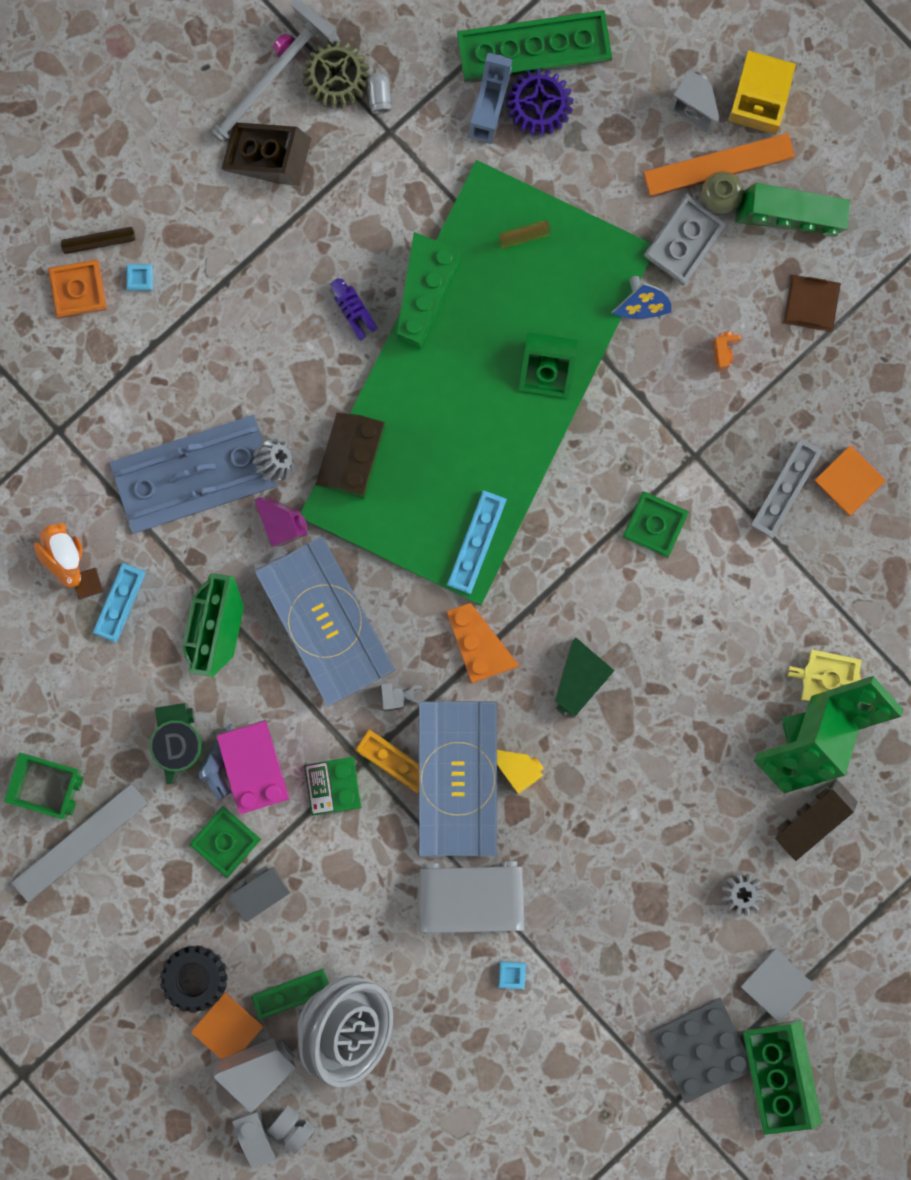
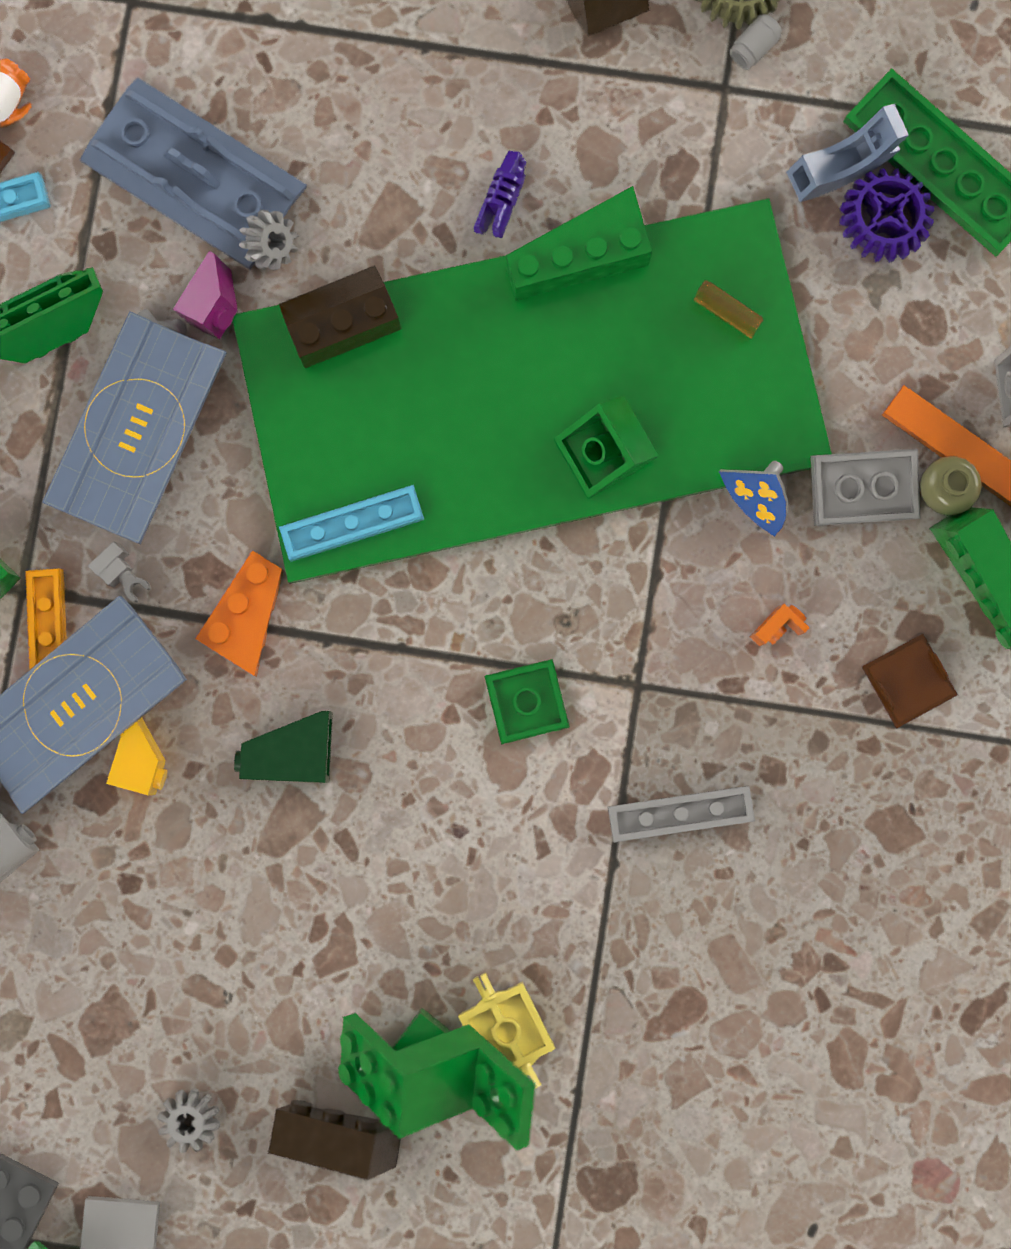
camera: 55 degrees right, 0 degrees up
(849, 480) = (746, 877): orange tile -> none

